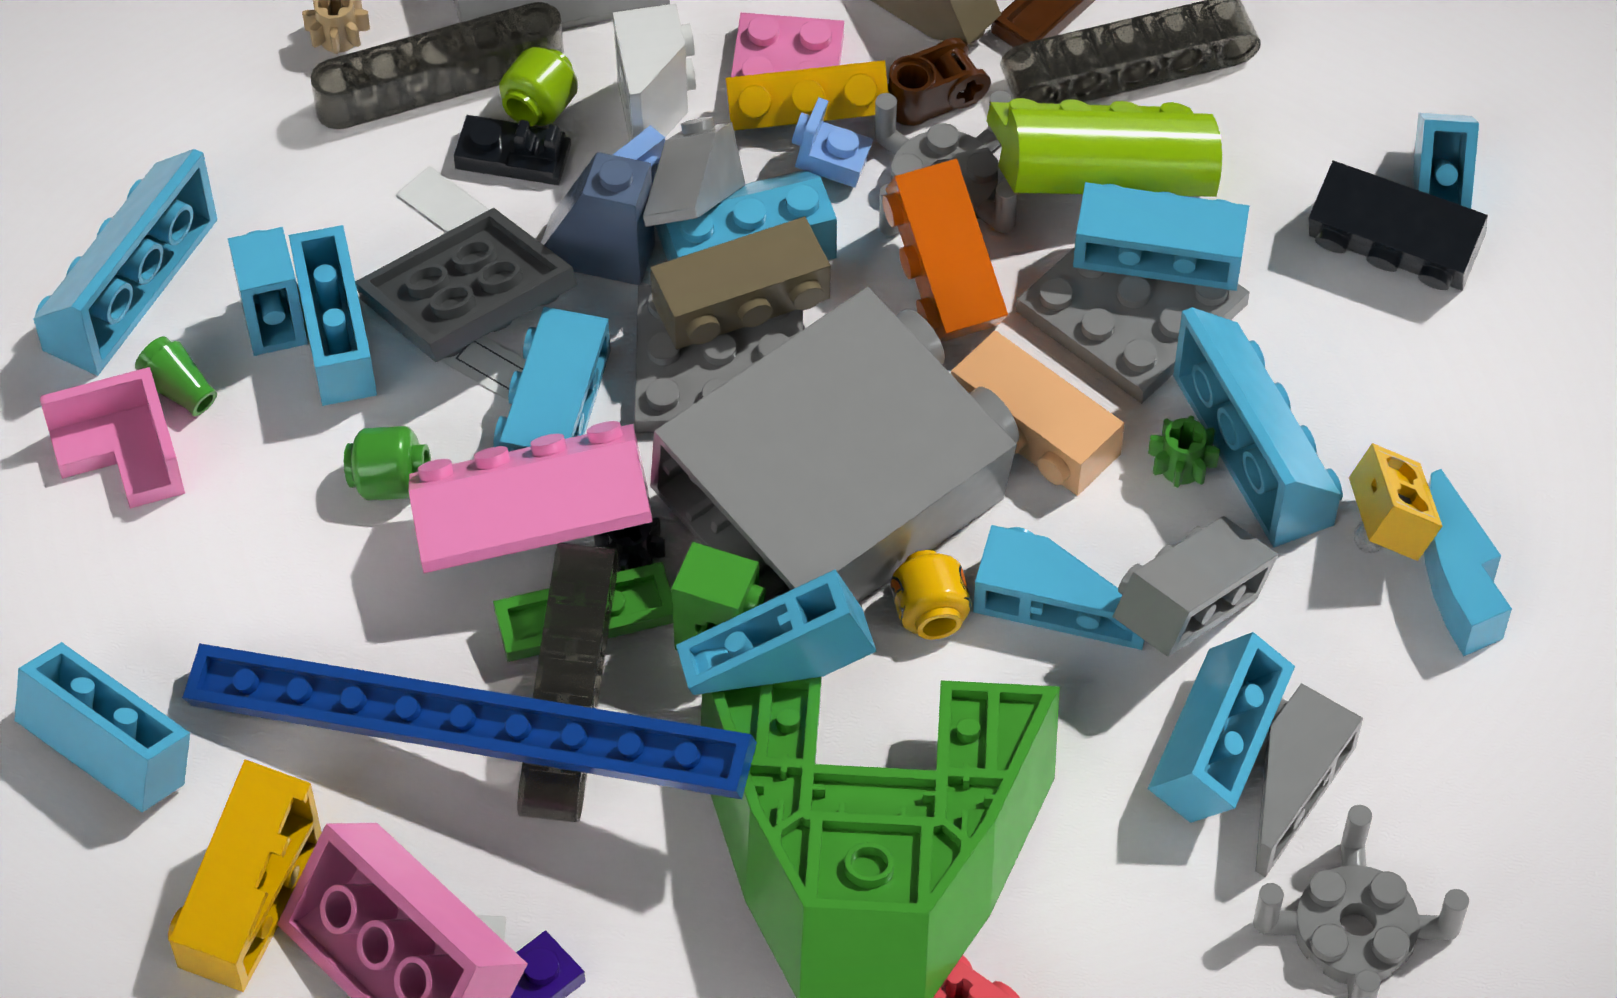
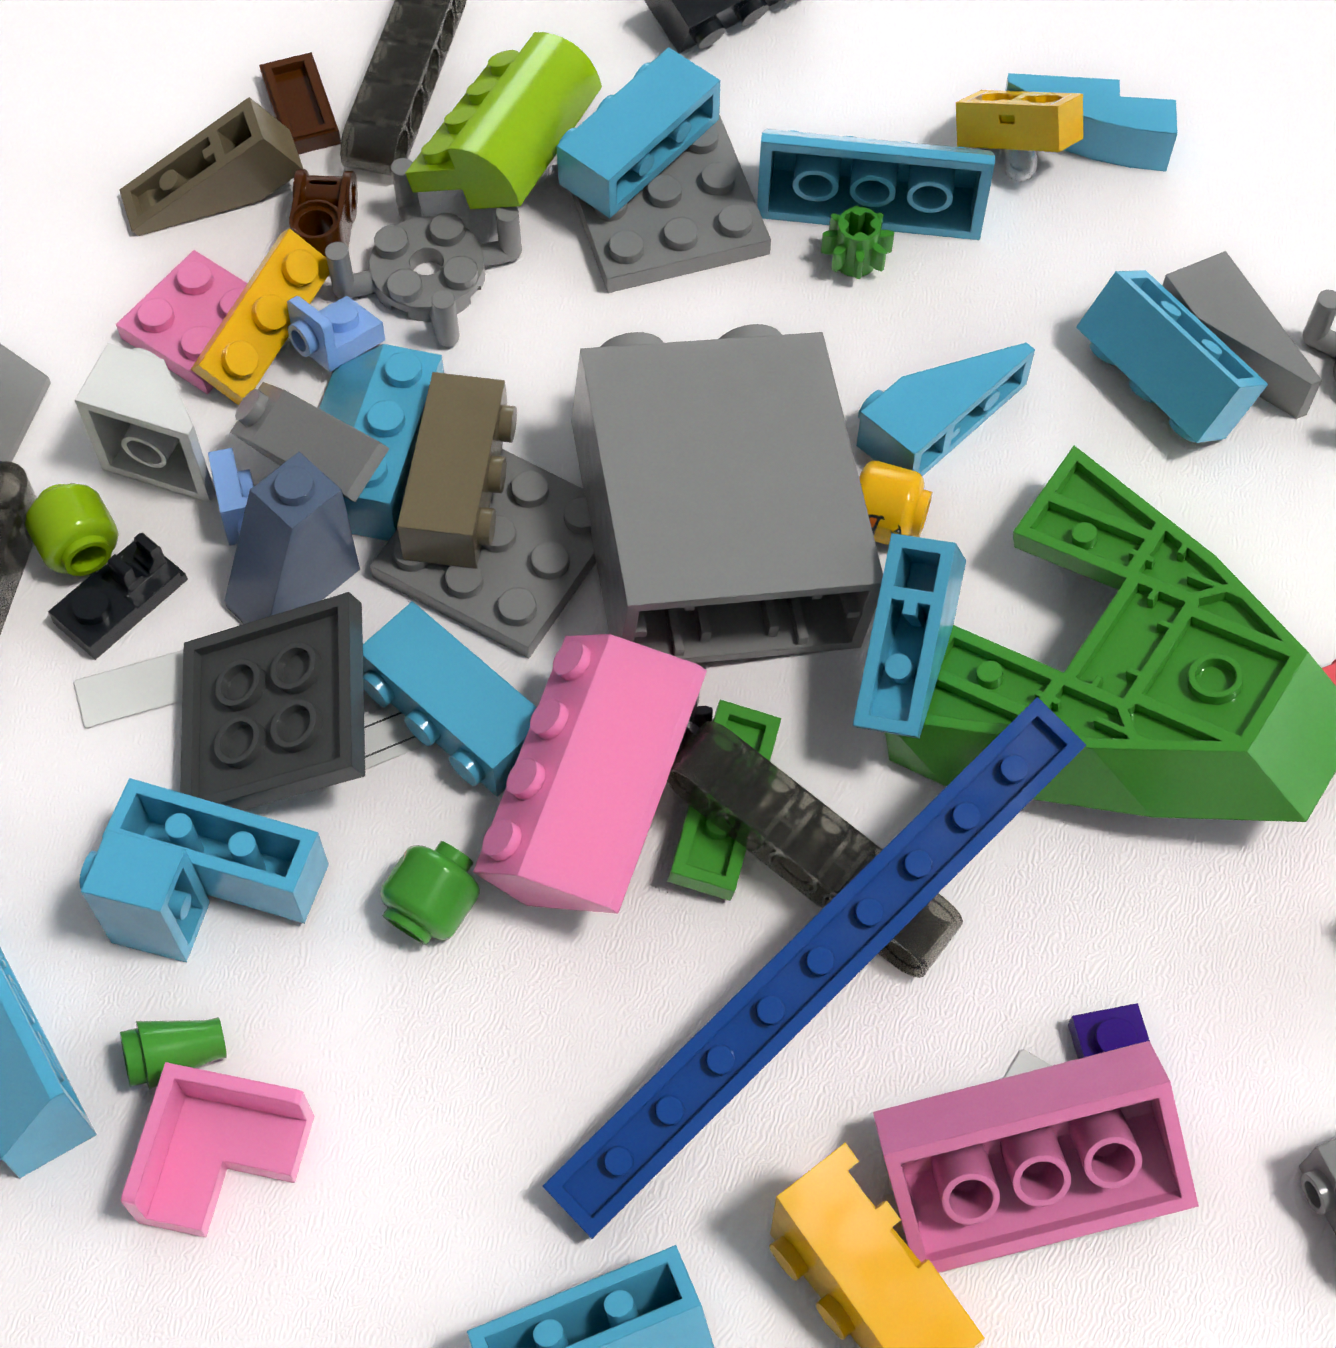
camera: 60 degrees left, 5 degrees up
(712, 590) = (813, 672): bright green brick -> none
(944, 250) = (535, 289): orange brick -> none
(1057, 424) = (786, 299): light nougat brick -> none
(1193, 585) = (1026, 295): light grey brick -> none

